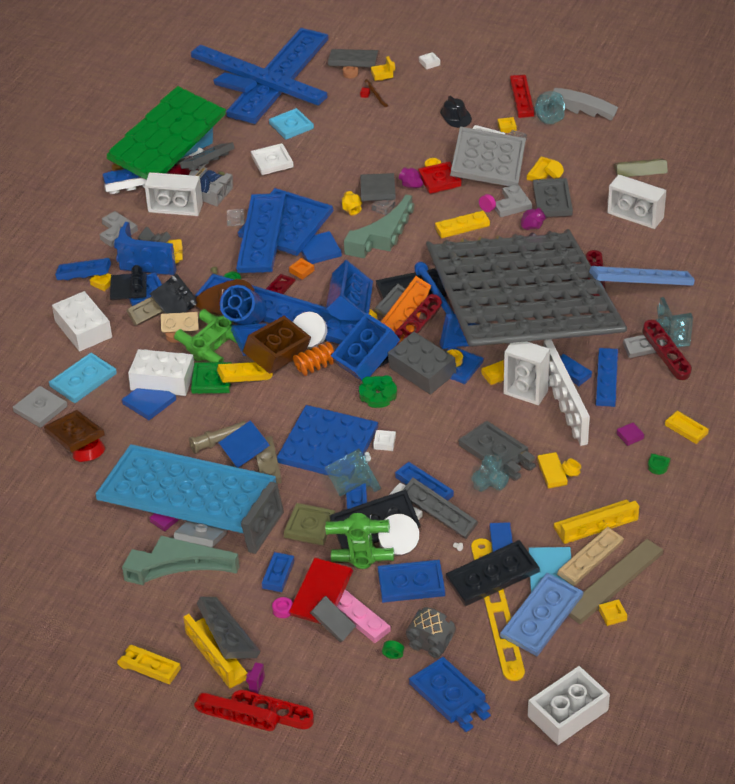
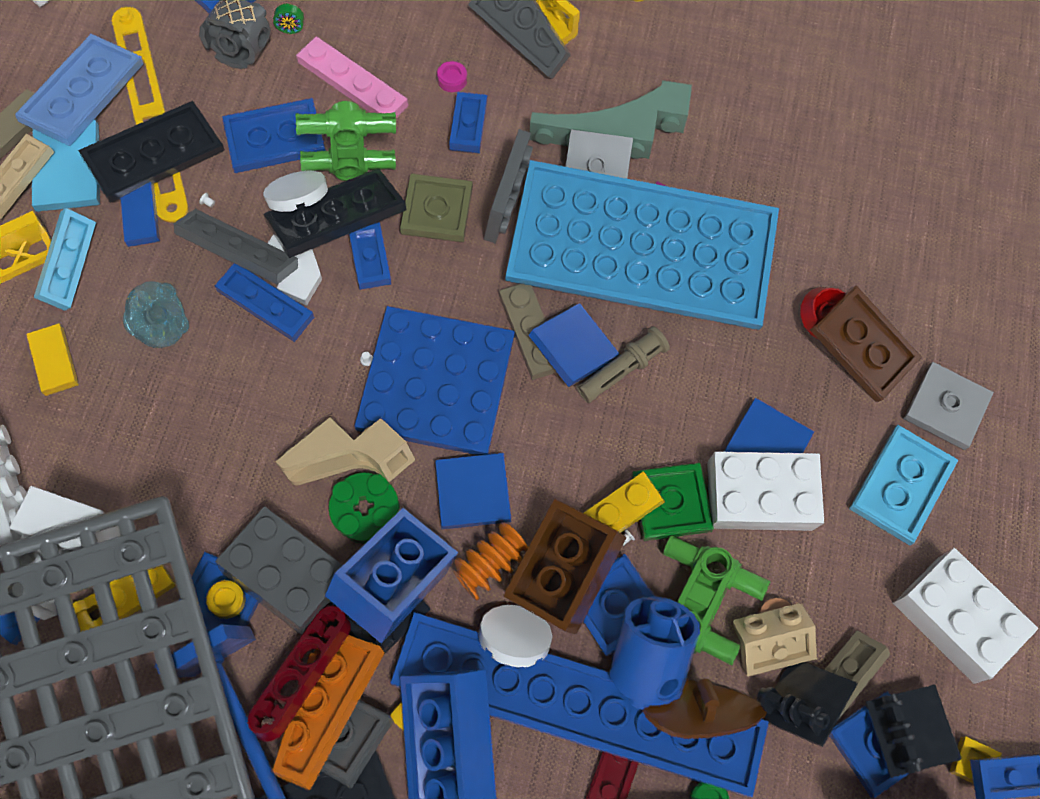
camera: 165 degrees right, 25 degrees up
(318, 393) = (473, 491): none -> blue tile
(321, 580) = (397, 84): red tile -> none
(332, 619) = (375, 43): dark grey tile -> none
(351, 473) = (379, 297): clear light blue bracket -> none
(384, 440) = (340, 395): white tile -> none
(389, 407) = (332, 451): none -> tan arch
(493, 441) = (145, 391): dark grey tile -> none
(546, 514) = (65, 259): none -> medium azure plate
(571, 467) = (16, 359): yellow plate -> none

